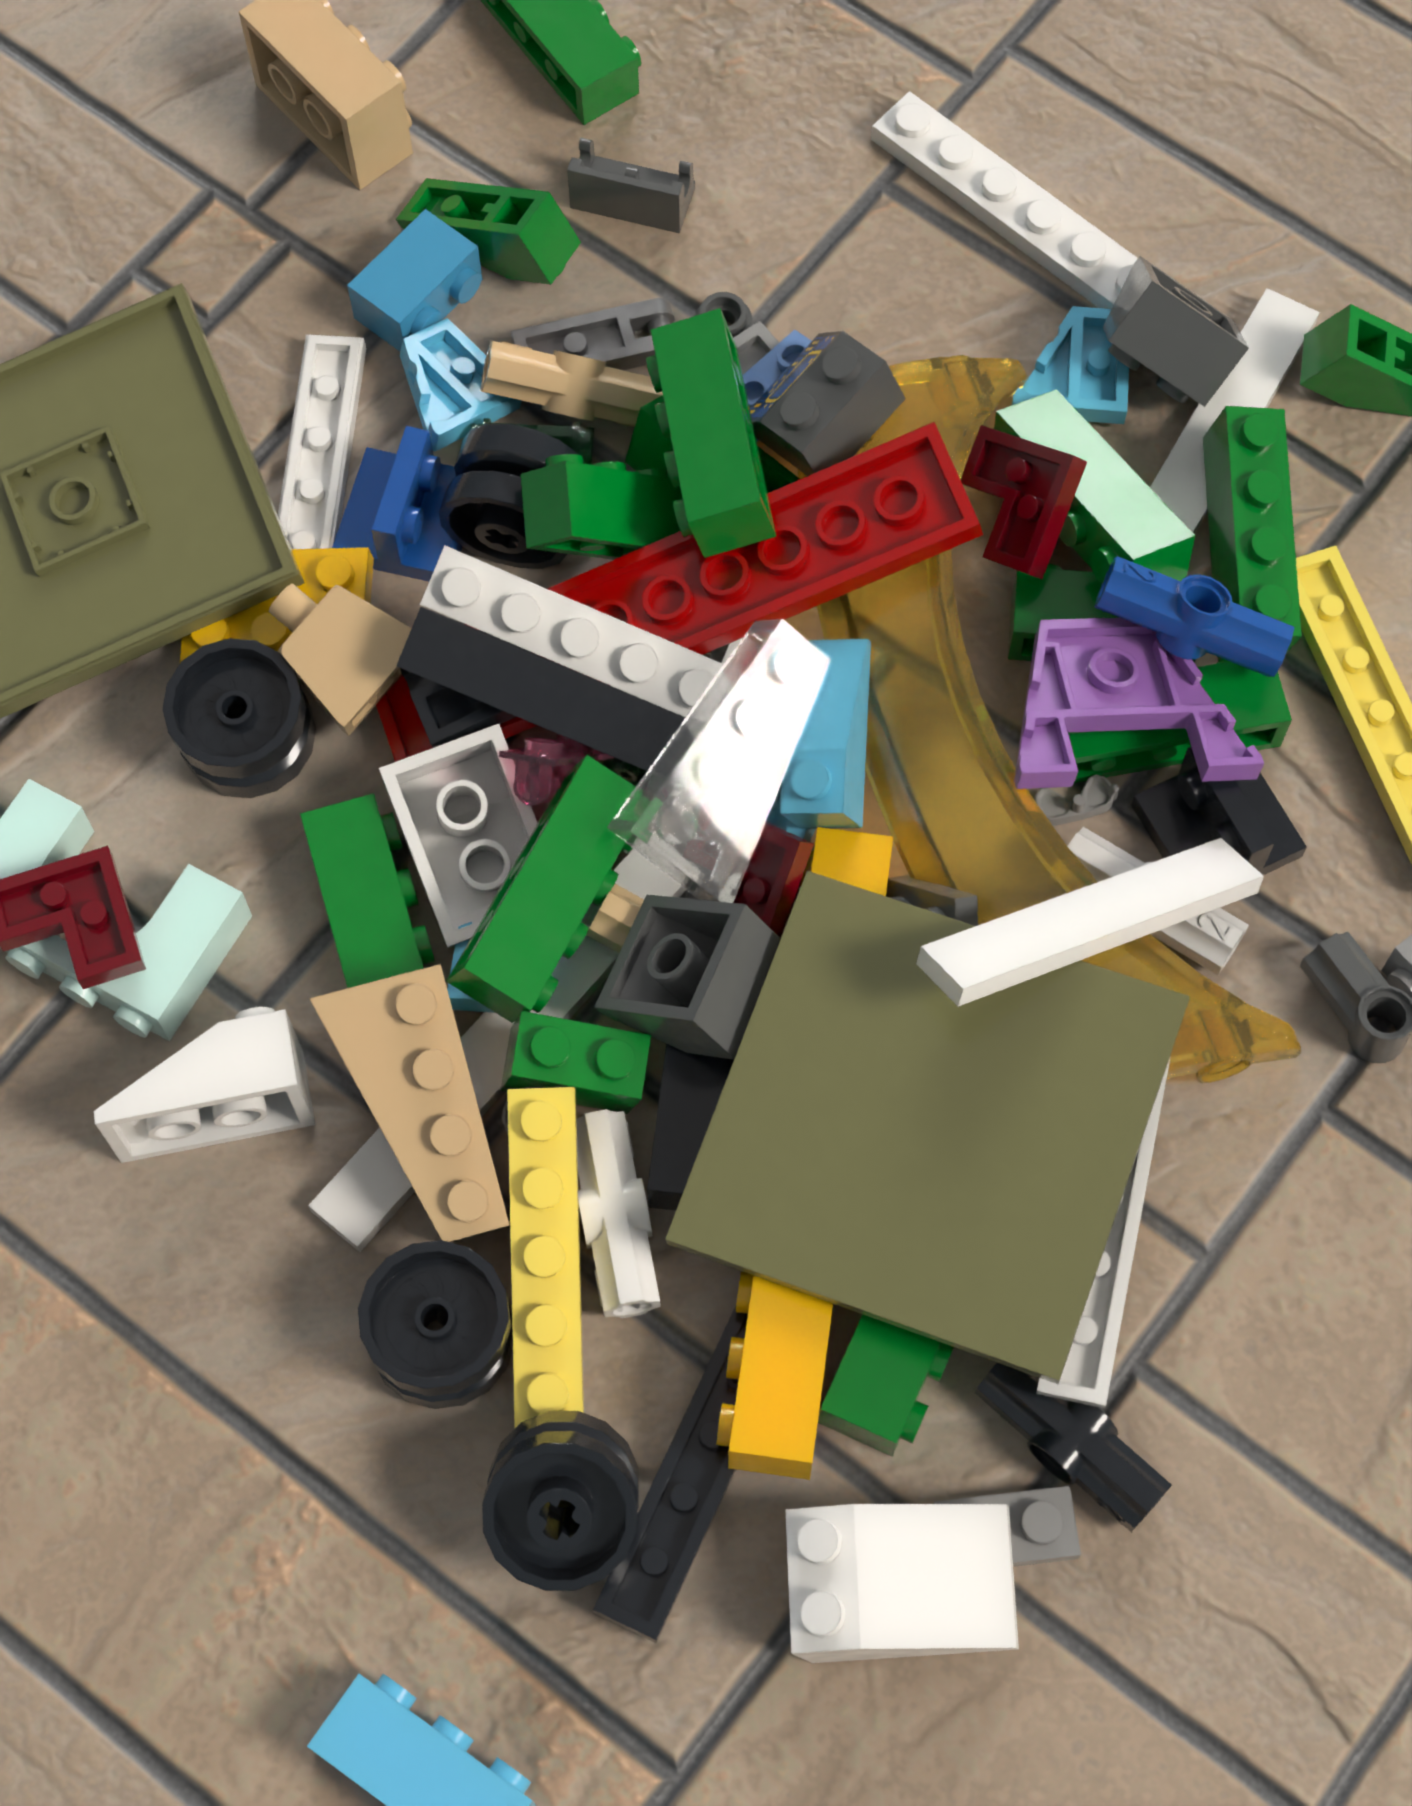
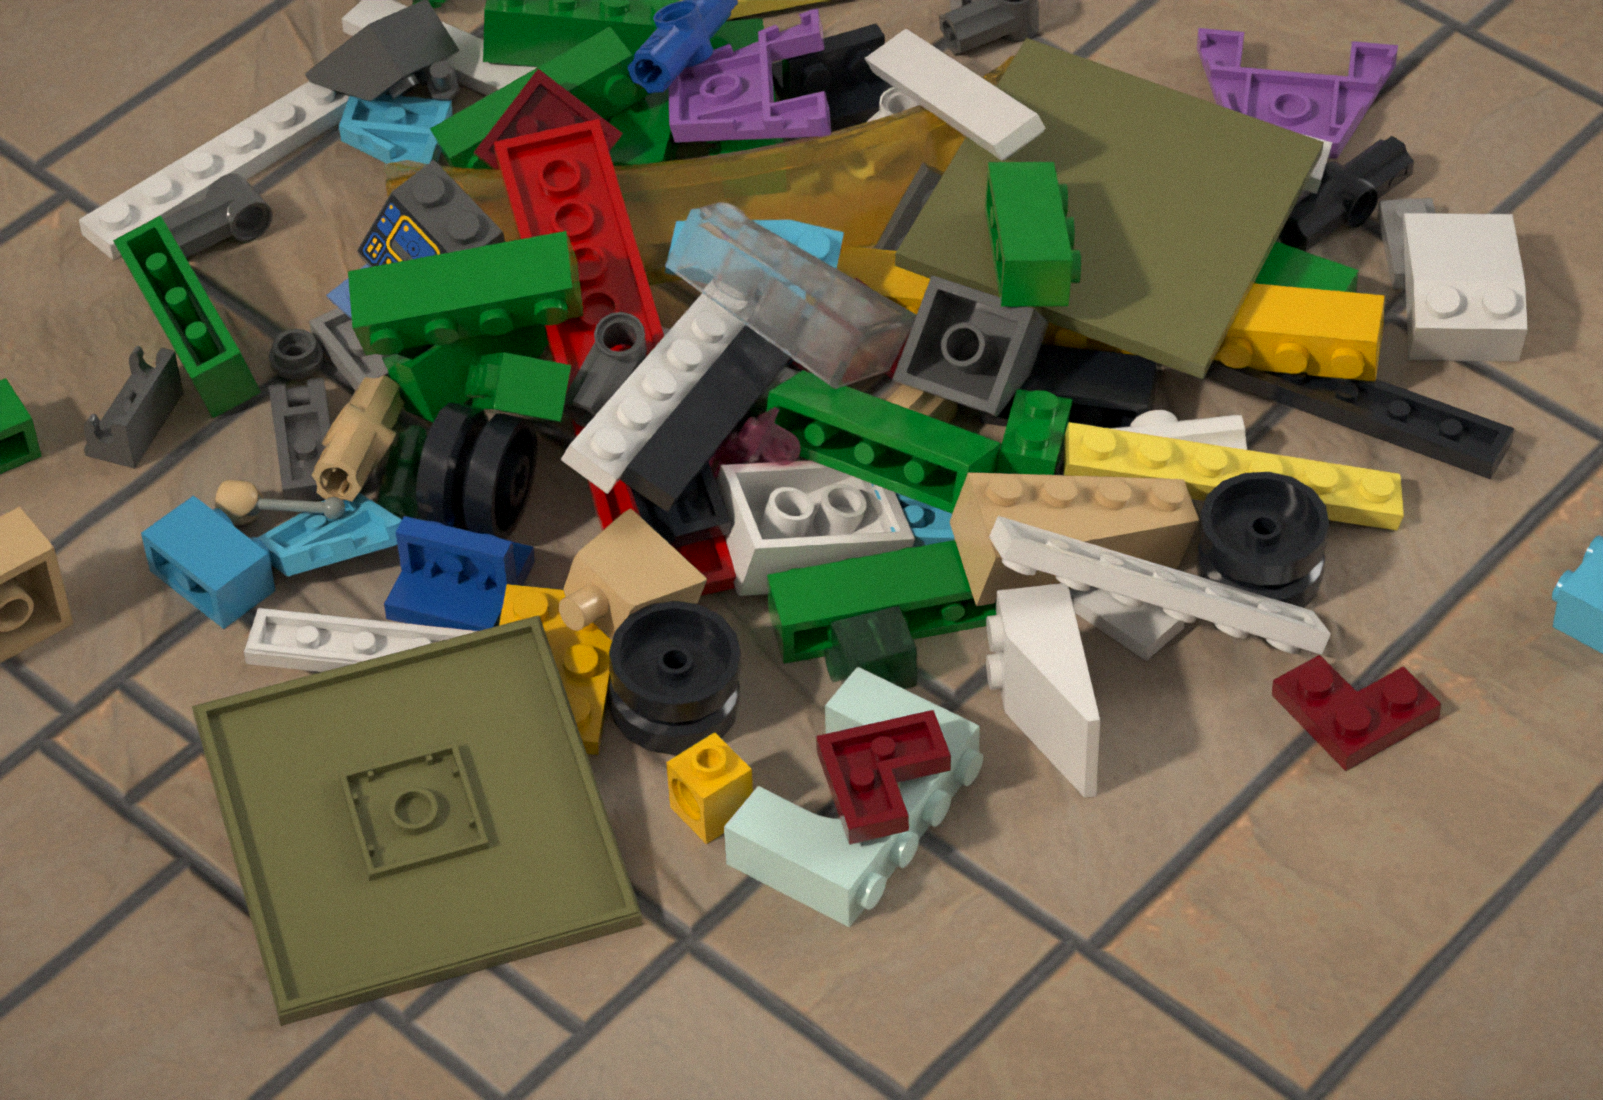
camera: 85 degrees left, 20 degrees down
(104, 769) = (708, 786): none -> yellow brick
(209, 1435) = (1350, 722): none -> dark red plate
(290, 916) = (875, 644): none -> clear green brick
(316, 1192) = (1141, 581): none -> white plate
(500, 302) = (245, 503): none -> hinge
(515, 228) = (165, 477): green slope -> none
(554, 1540) = (1413, 457): black wheel -> none
(615, 587) = (605, 369): none -> dark grey piece
(747, 203) = (187, 316): none -> green brick
(803, 1005) = (1030, 234): none -> green brick
(928, 225) = (228, 210): none -> dark grey piece
(1151, 401) = (443, 82): none -> dark grey bar
(1232, 1377) = (1298, 101): none -> medium lavender wing

